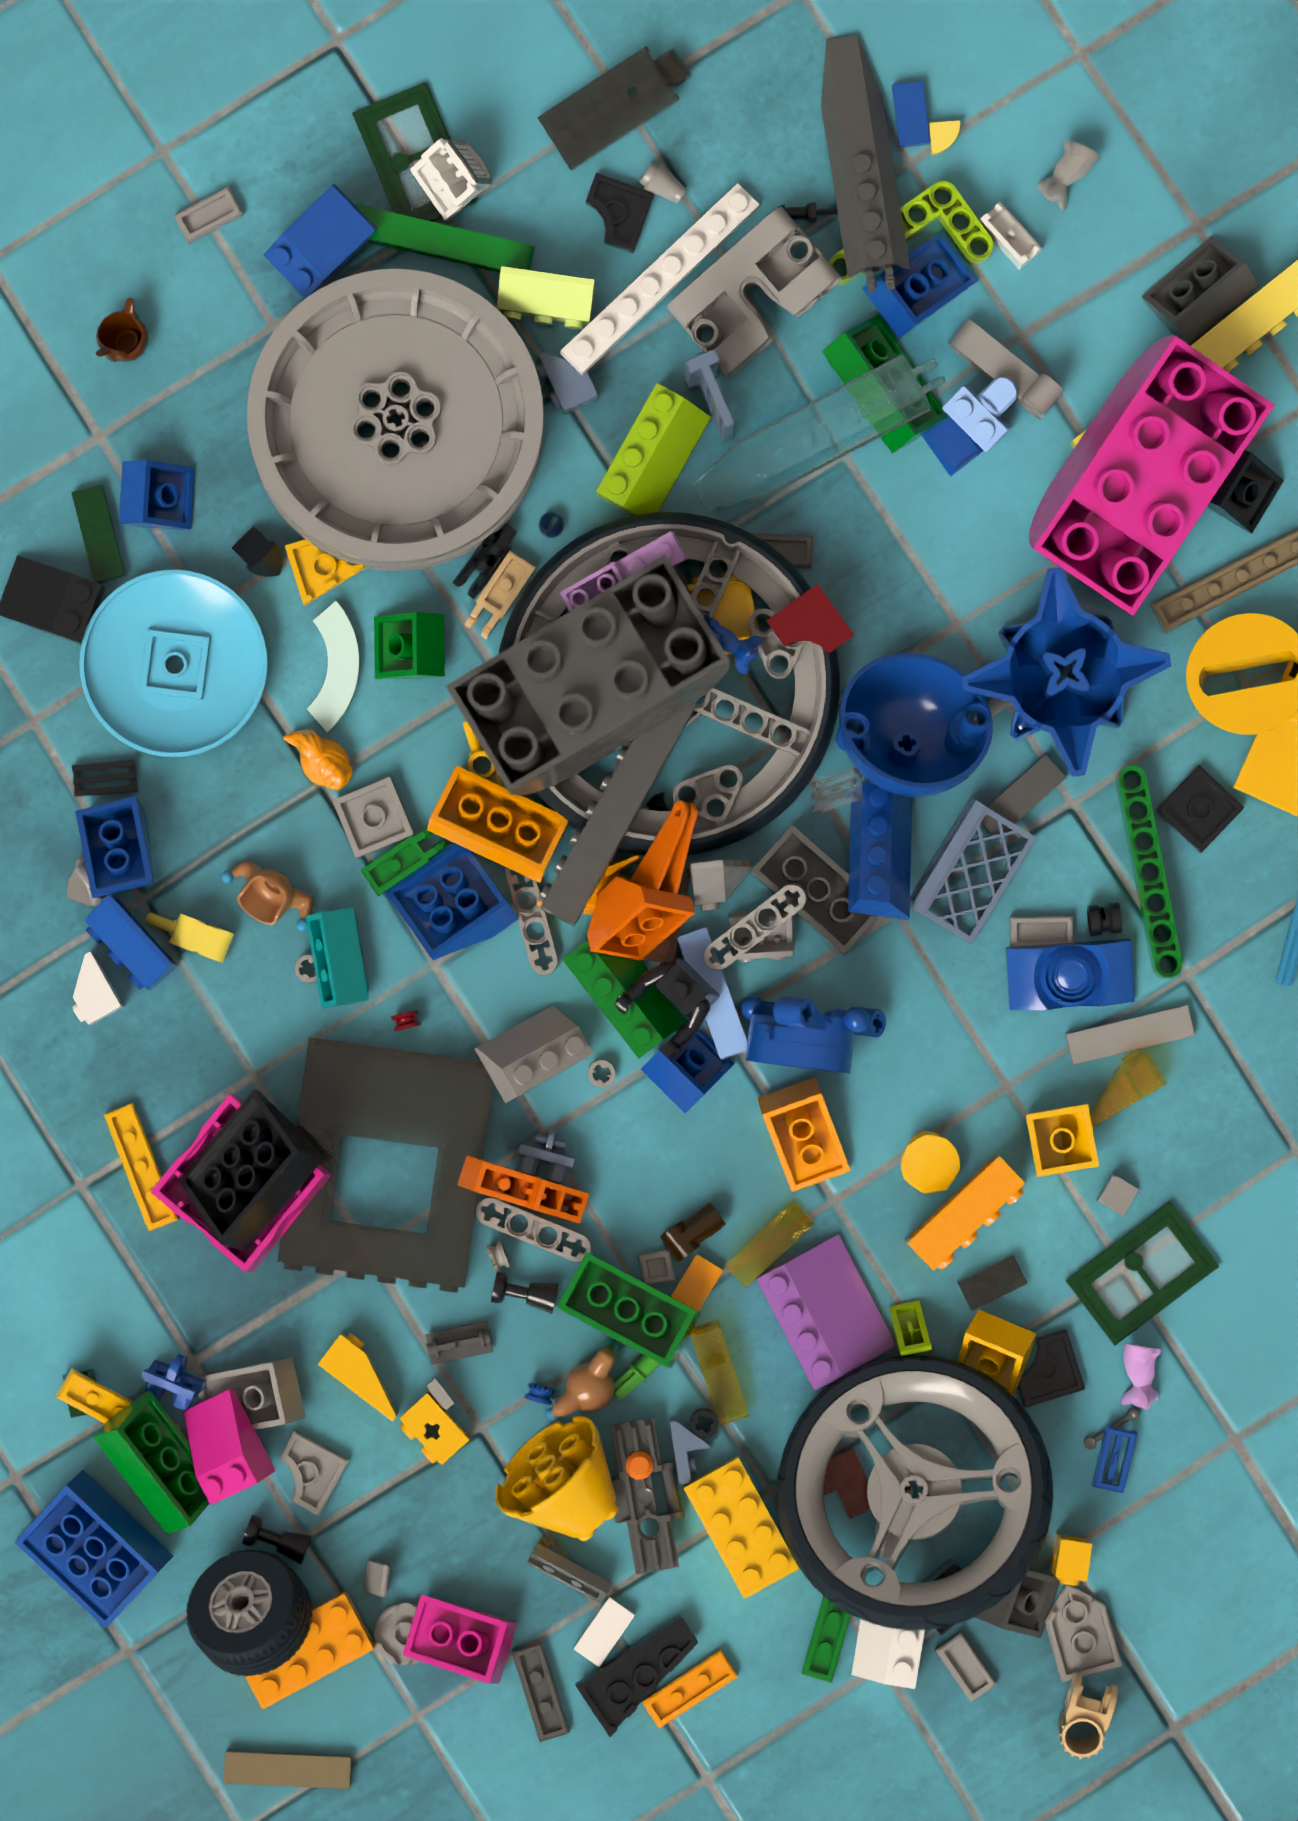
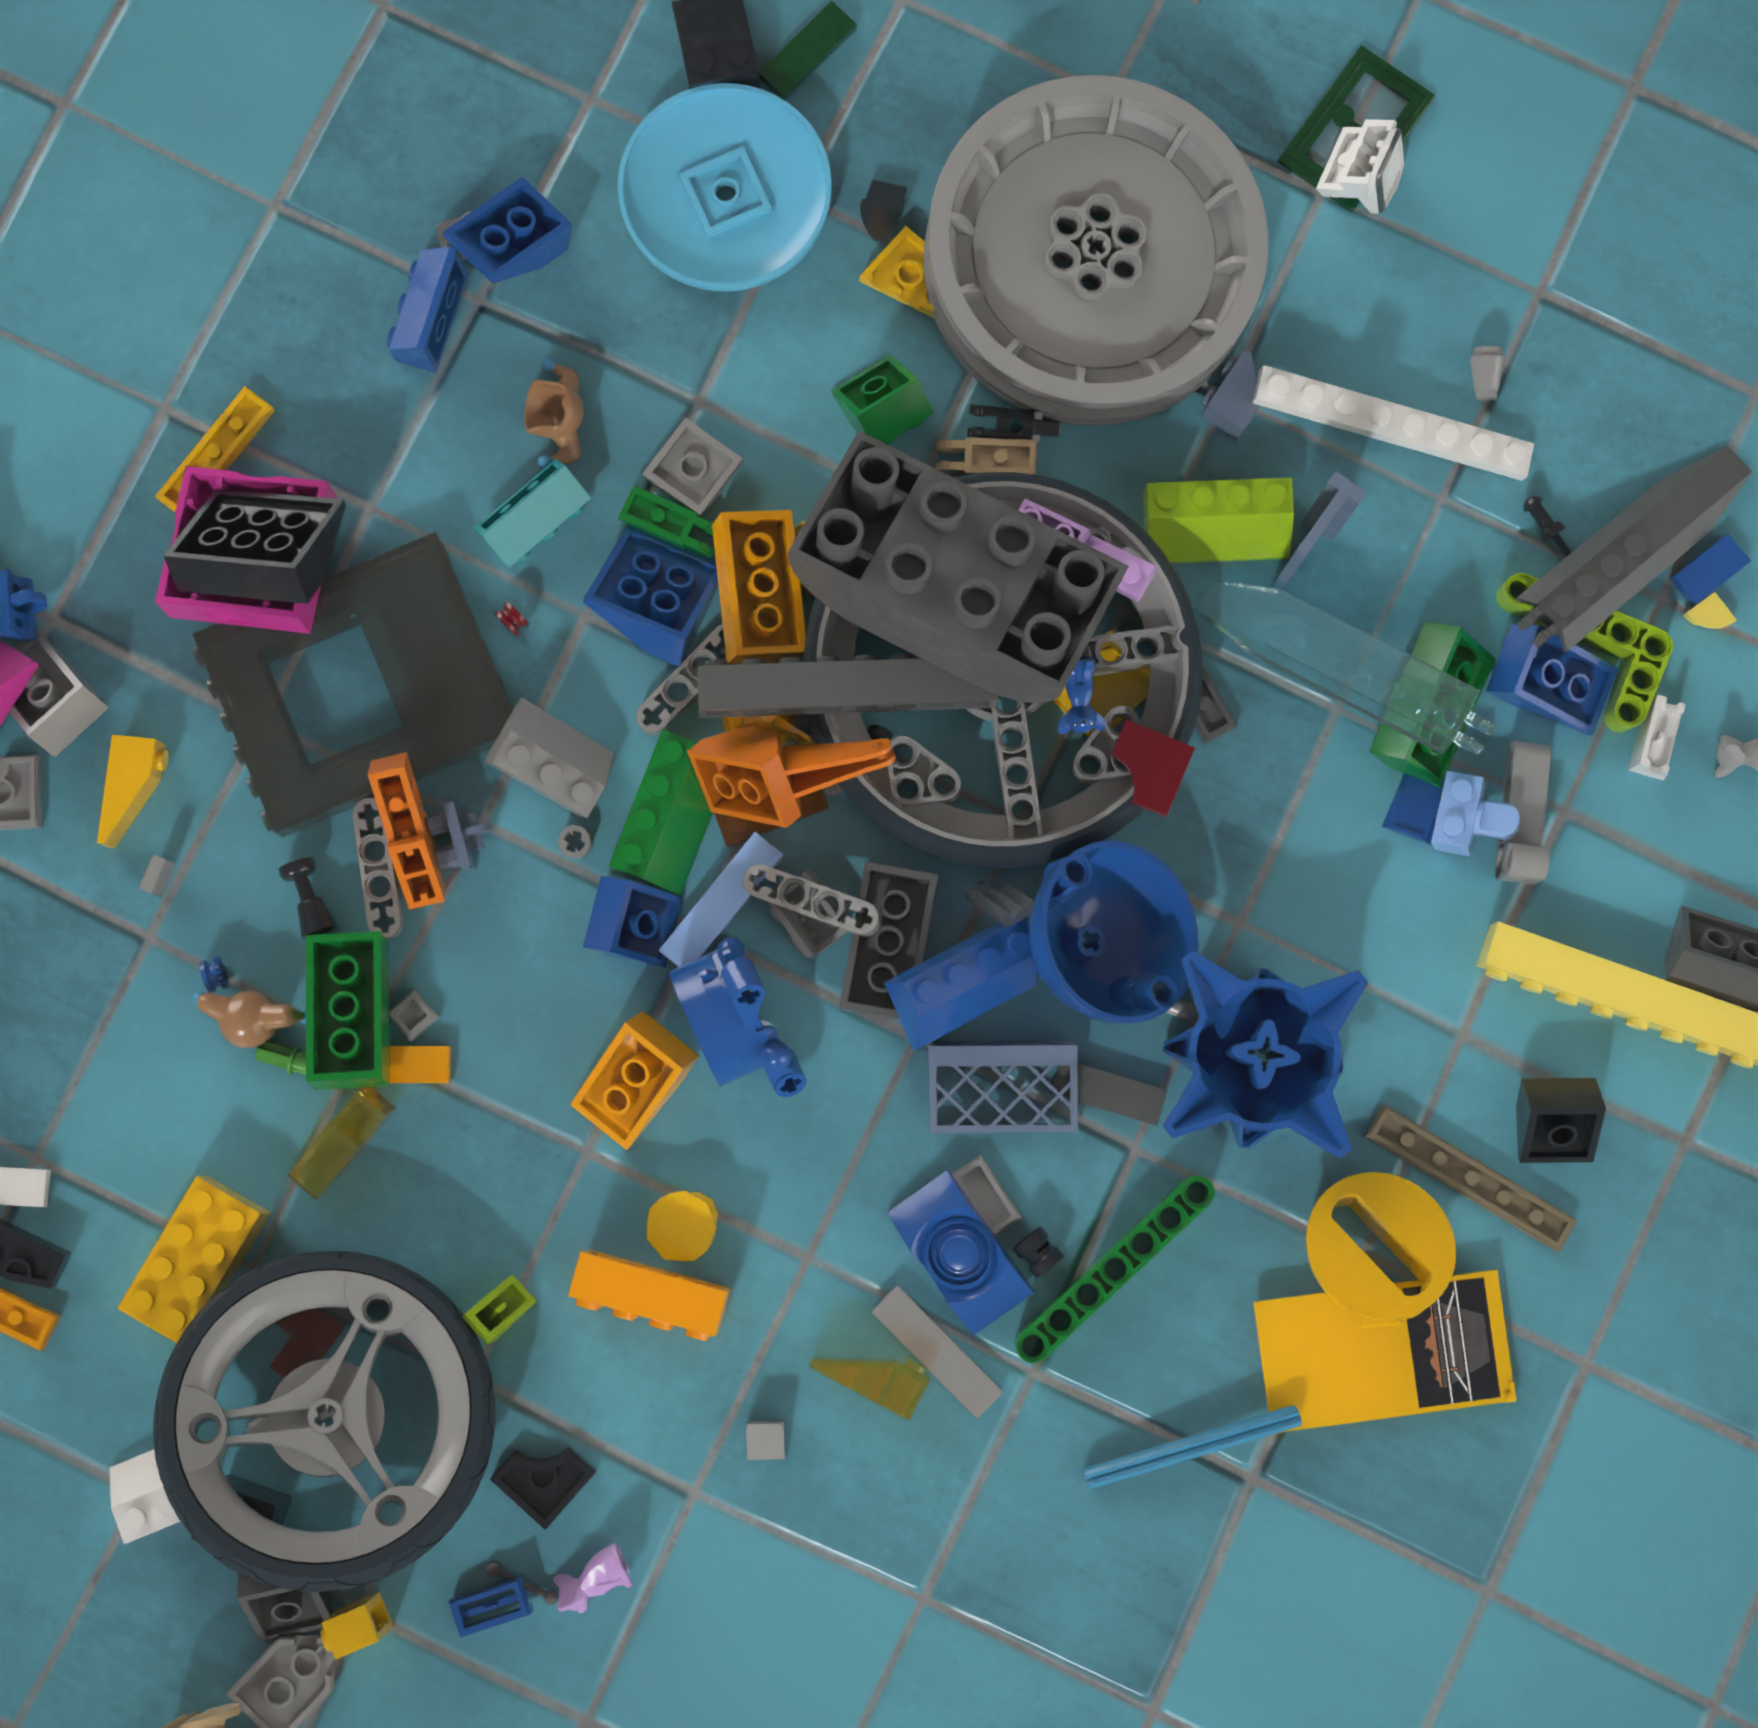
camera: 60 degrees right, 5 degrees down
(77, 780) = (558, 171): black tile -> none
(94, 992) = (360, 304): white slope -> none
(156, 495) = (879, 79): blue slope -> none
(194, 935) = (470, 365): light yellow beam -> none
(305, 978) = (500, 485): light grey bush -> none
(320, 242) = (1223, 76): blue slope -> none
(321, 759) = (720, 386): light orange hair -> none
(342, 667) = (821, 353): light aqua tile -> none
(429, 1411) = (110, 909): yellow brick -> none
(447, 241) = (1288, 183): green beam -> none
(459, 1343) = (219, 863): dark grey hinge -> none
(498, 1256) = (330, 849): light grey bush -> none
(545, 297) = (1306, 322): yellowish green slope -> none
(557, 528) = (1084, 473): dark blue hinge -> none
(560, 1480) = (128, 1046): yellow cone -> none
(568, 1572) = (48, 1110): dark grey hinge -> none
(603, 112) = (1518, 276): clear smoke hinge -> none
(622, 210) = (1436, 350): black tile -> none
(636, 1459) = (161, 1132): dark grey piece -> none
(684, 989) = (704, 864): black torso -> none
(684, 1441) = (249, 1148): sand blue slope -> none
(688, 1234) = (463, 1026): dark brown piece -> none
(707, 1413) = (269, 1161): black bush -> none
(716, 880) = (834, 832): light grey wedge -> none
(761, 259) = (1475, 503): light grey connector -> none
(769, 1244) = (500, 1112): clear yellow slope -> none
(826, 1312) = (465, 1212): medium lavender slope -> none
(826, 1641) = (119, 1423): green tile -> none
(965, 1667) = (184, 1583): light grey tile -> none
(992, 1282) = (598, 1365): clear smoke plate -> none
(997, 1349) = (529, 1412): yellow slope -> none
(1062, 1140) = (785, 1347): yellow slope -> none
(1142, 1273) = (700, 1516): dark green door -> none
(1146, 471) = (1524, 1011): dark pink brick -> none
(1199, 809) = (1209, 1281): black tile -> none

